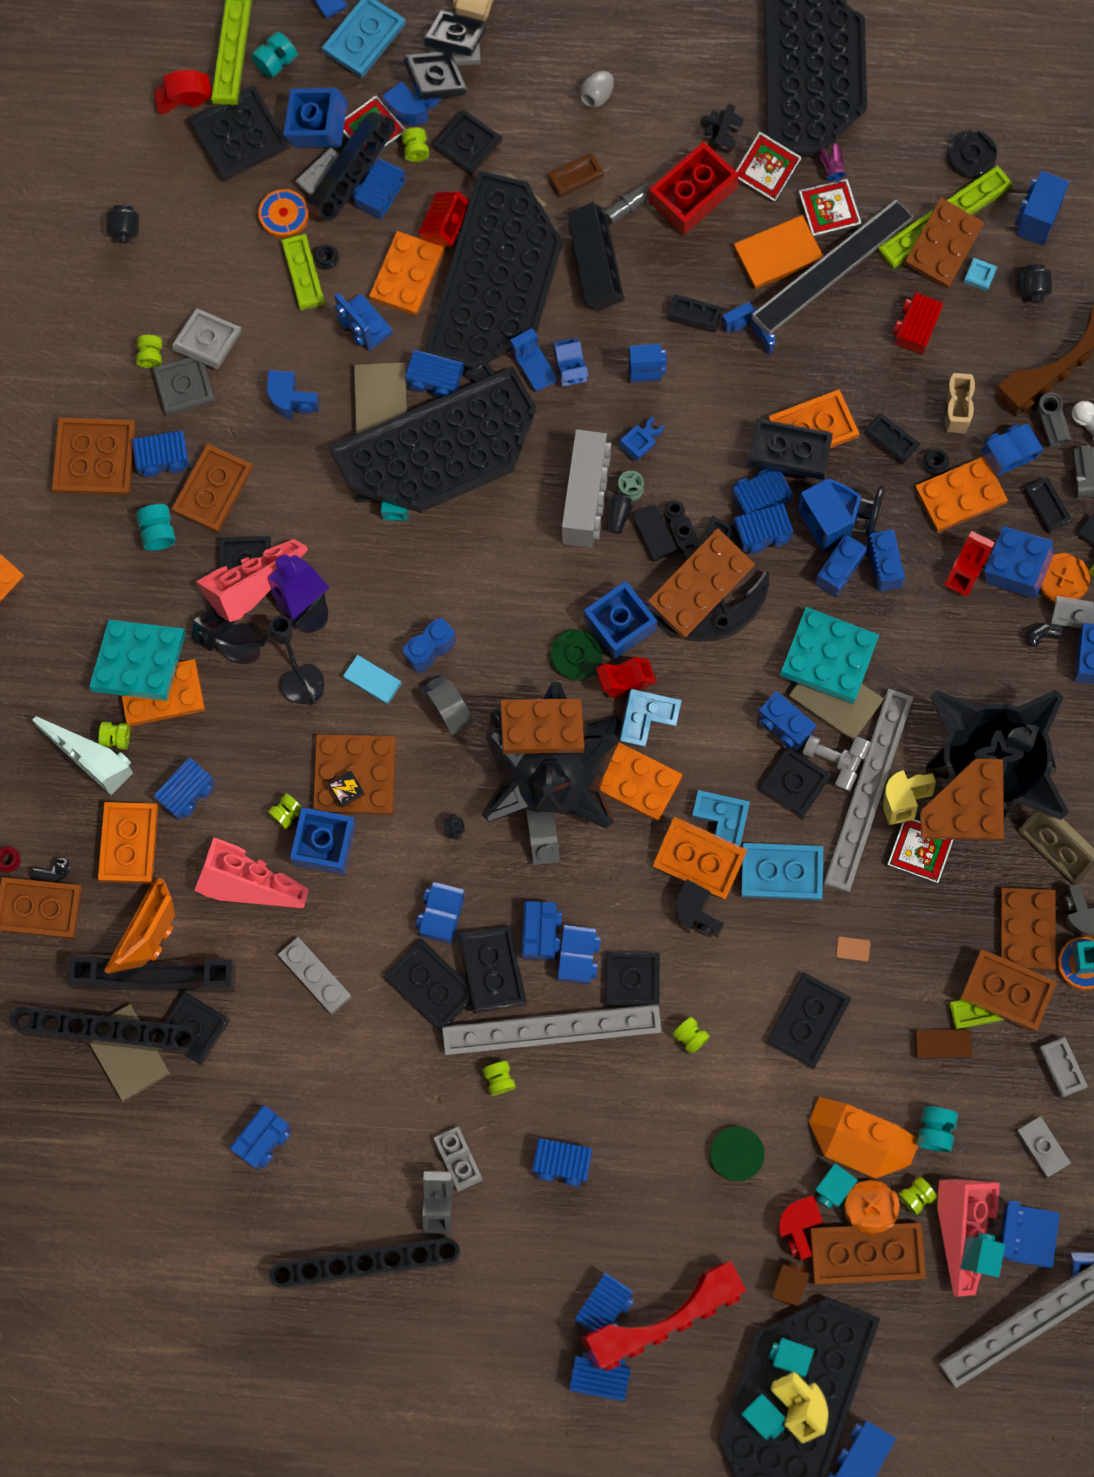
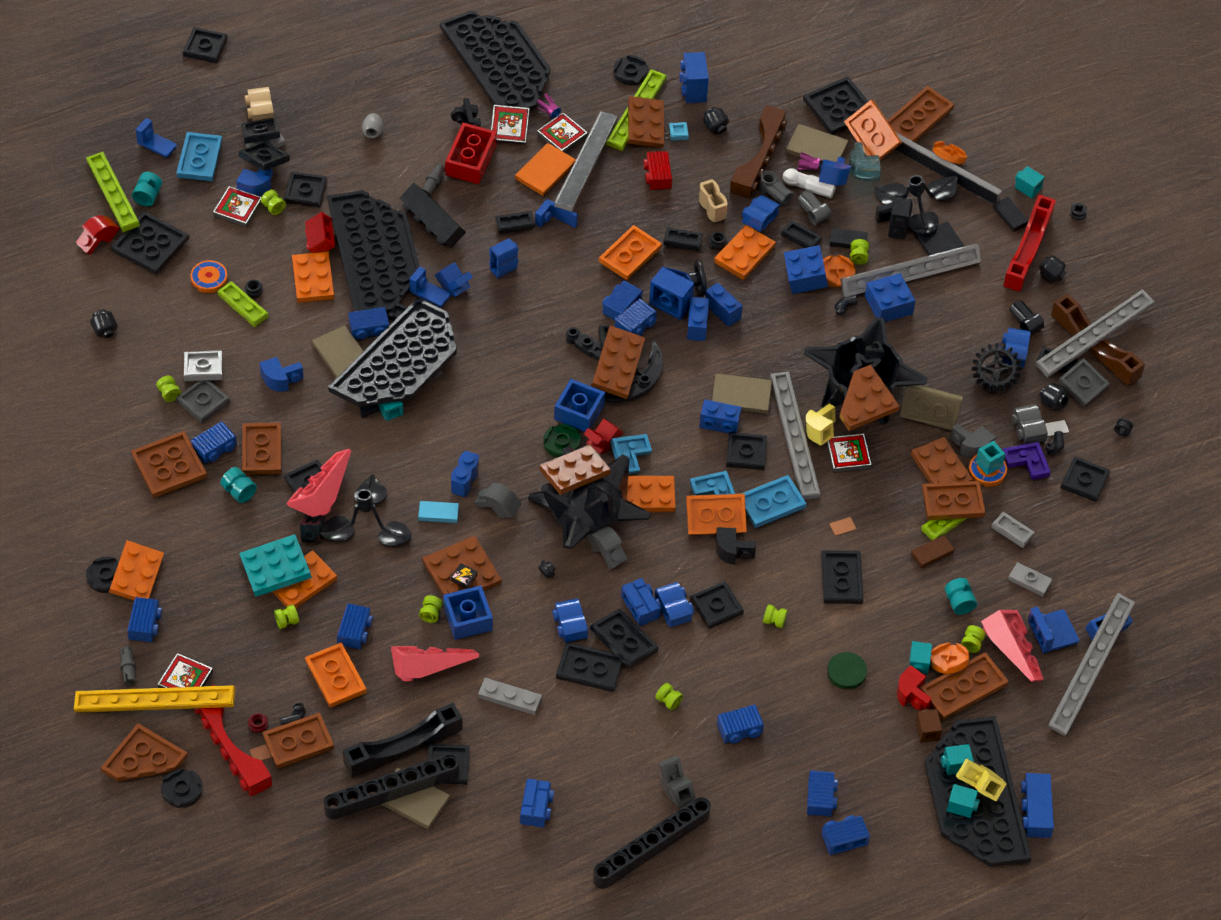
camera: 35 degrees left, 20 degrees down
(96, 760) = (281, 636): light aqua wedge -> none
(145, 931) = (382, 712): orange wedge -> none
(295, 585) = (355, 473): dark purple torso -> none
(312, 176) = (221, 243): light grey plate -> none
(315, 117) = (199, 210): blue brick -> none
(361, 161) = (240, 228): black beam -> none
(363, 320) = (300, 313): blue bracket -> none
(379, 188) = (265, 235): blue brick -> none
(458, 1159) = (665, 749): light grey slope -> none
(551, 1029) = (684, 654): light grey plate -> none
(575, 175) = (388, 179): reddish brown tile -> none
(586, 489) = (510, 342): light grey brick -> none
(618, 512) = (538, 350): black cone -> none
(631, 480) = (536, 332): sand green wheel -> none
(640, 440) = (525, 305): blue plate -> none
(654, 533) = (568, 352): black tile -> none
(713, 1289) = (843, 799): red arch -> none
(790, 449) = (625, 267): black tile -> none
(829, 655) = (722, 370): teal plate -> none
(847, 762) = (772, 423): light grey bar -> none
(861, 1139) = (917, 622): orange wedge -> none
(969, 564) = (776, 282): red brick -> none
(983, 1255) = (1035, 647): teal brick -> none

